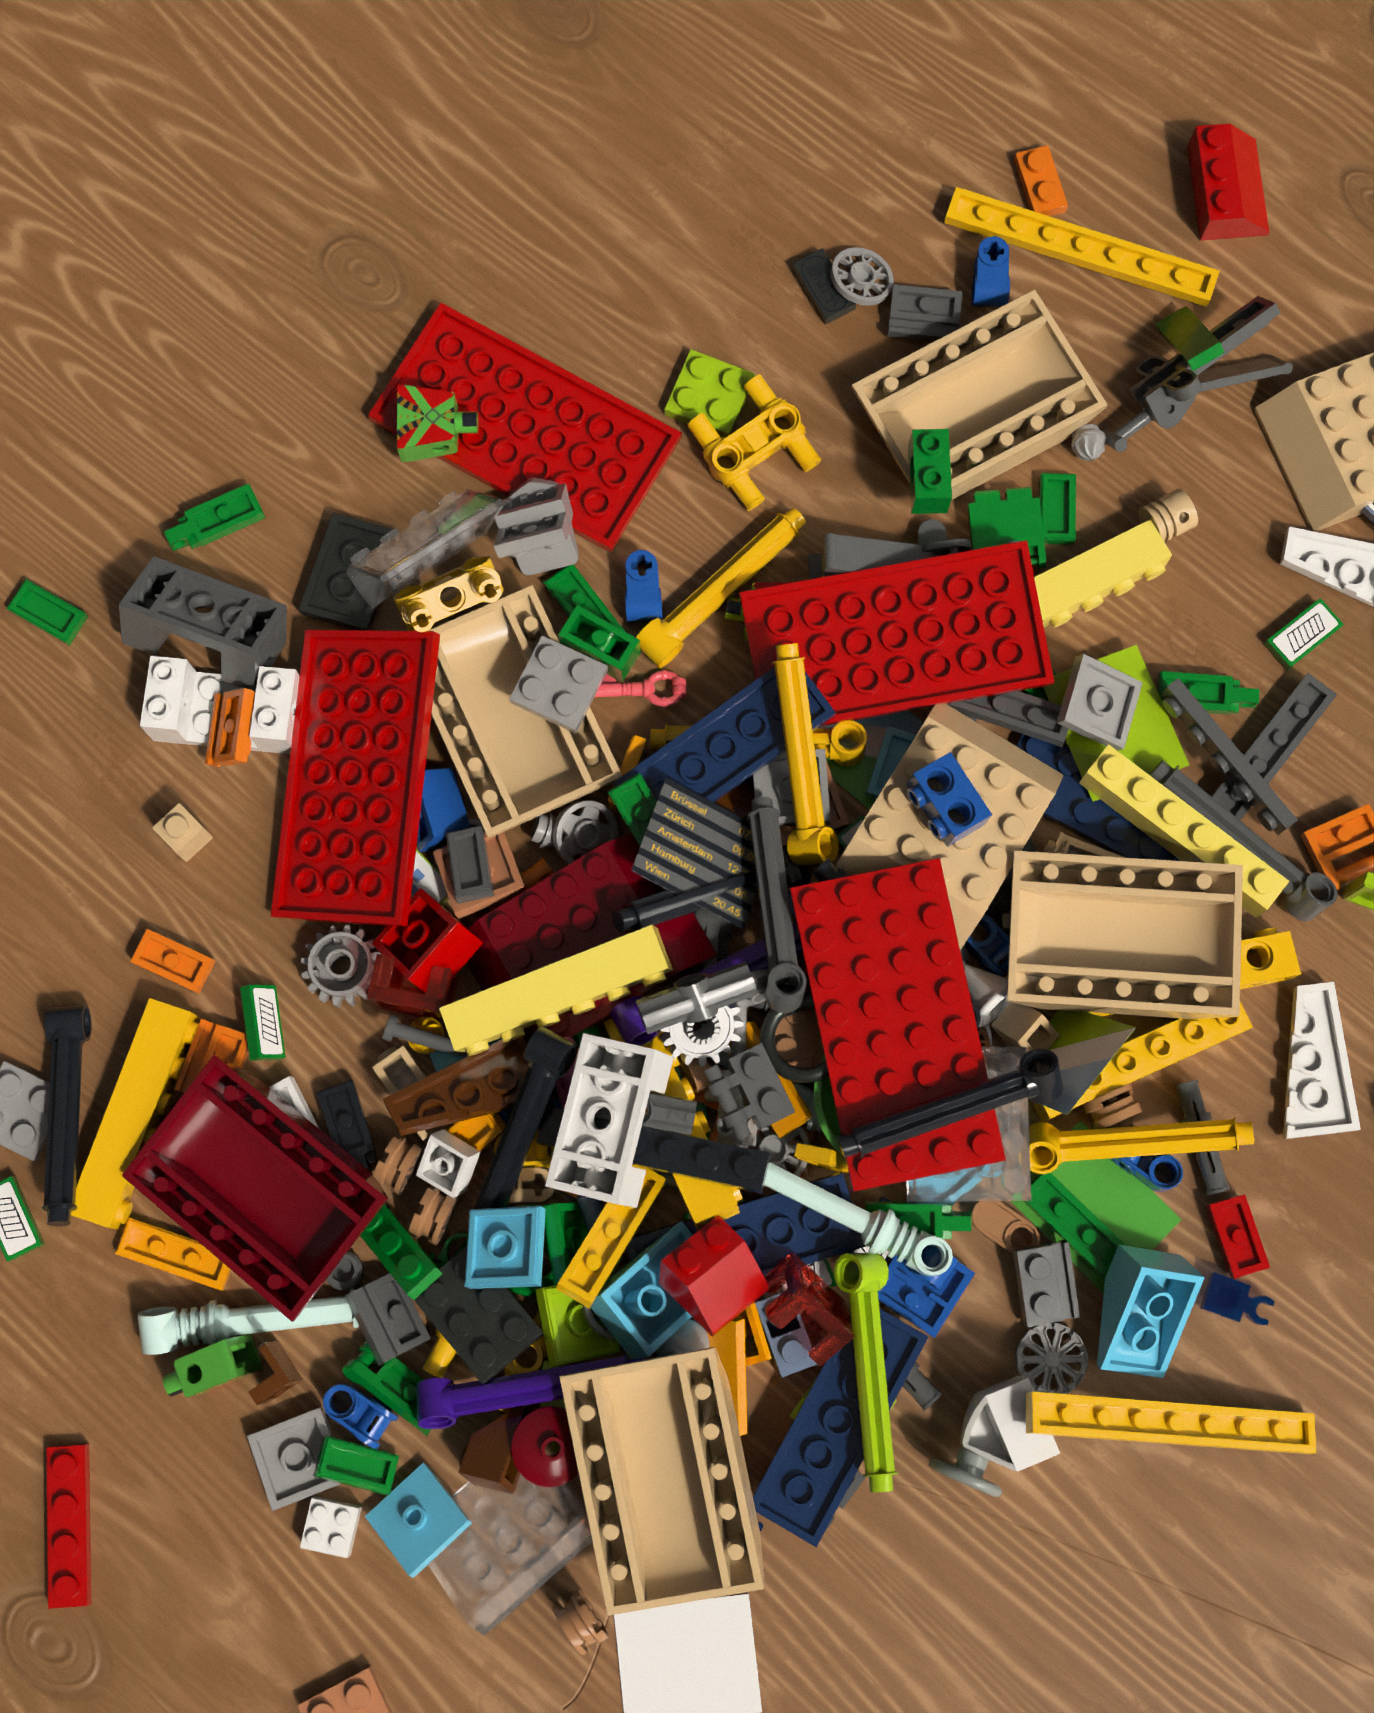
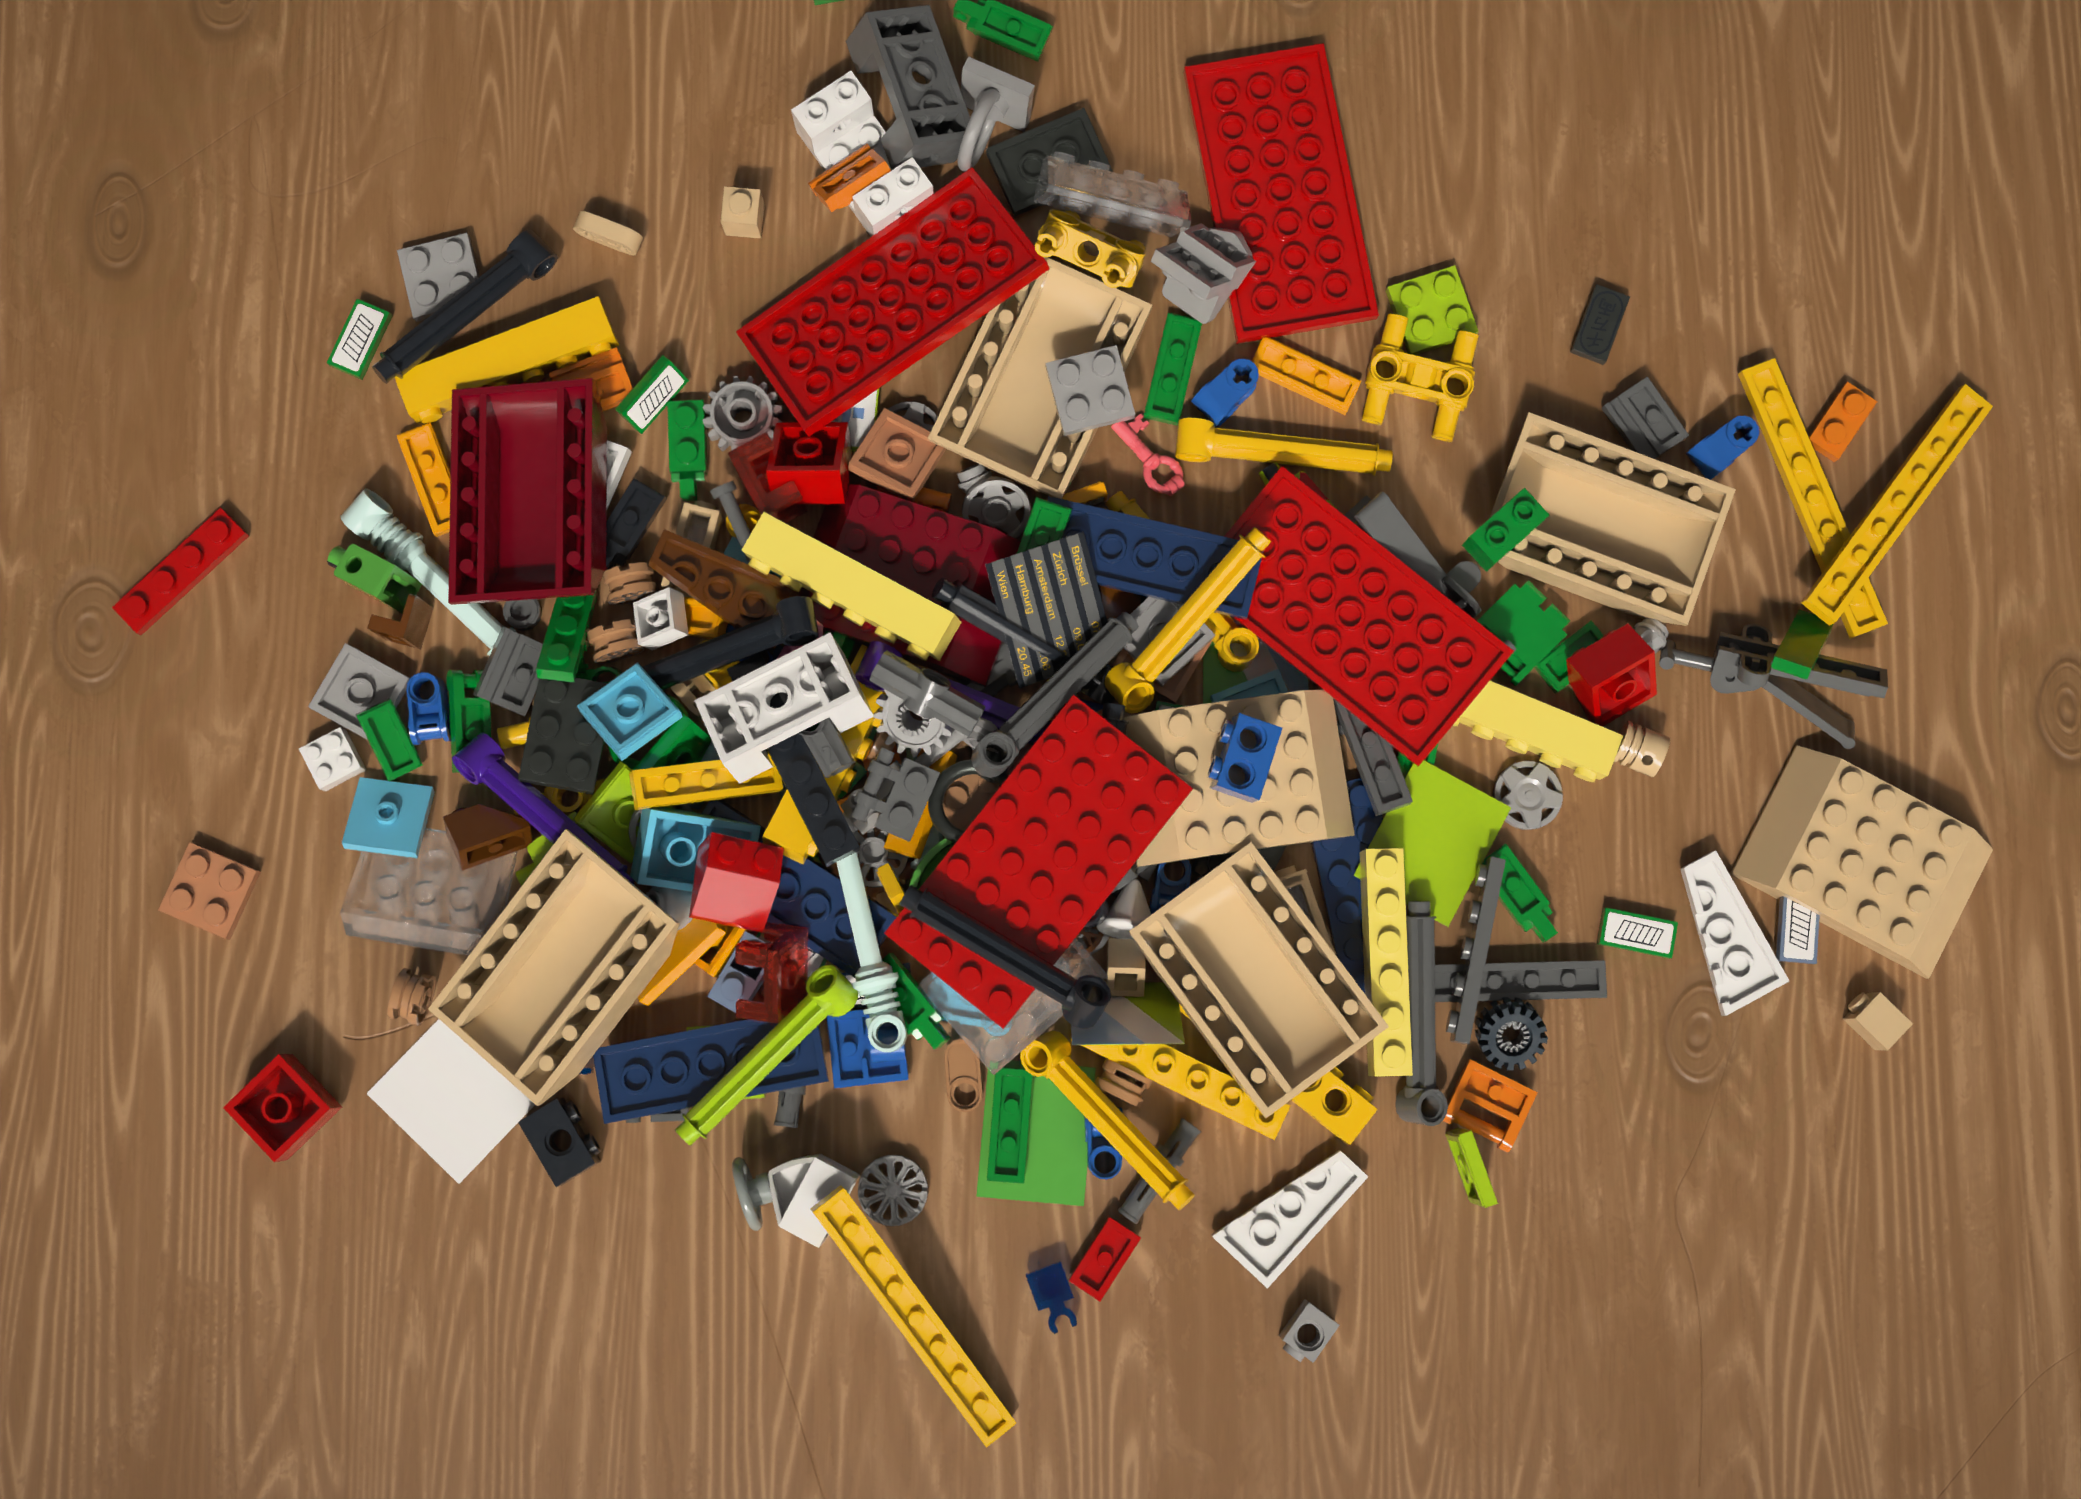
camera: 45 degrees right, 5 degrees up
(104, 950) = (607, 233): none -> tan beam
(173, 961) = (642, 290): orange plate -> none
(267, 569) = (993, 98): none -> light grey tile
(325, 1029) = (687, 445): none -> green hinge
(429, 423) = (1215, 118): torso -> none
(440, 809) = (922, 385): blue panel -> none
(469, 864) = (895, 443): dark grey tile -> none
(529, 1445) = (504, 849): dark red dish -> none
(601, 642) = (1151, 394): green brick -> none
(679, 523) = (1305, 375): none -> light orange tile
(816, 1612) = (541, 1131): none -> black brick
(861, 276) = (1633, 346): light grey wheel -> none
(1045, 1283) = (945, 1139): plate -> none
(1097, 489) = (1613, 675): none -> red slope
(1099, 702) = (1434, 814): light grey plate -> none
(1134, 624) = (1529, 794): none -> light grey wheel
(1138, 193) = (1896, 505): none -> yellow plate
(1145, 1310) = (986, 1230): medium azure slope -> none
(1226, 183) = (1972, 571): red slope -> none
(1325, 785) = (1507, 1051): none -> black bush

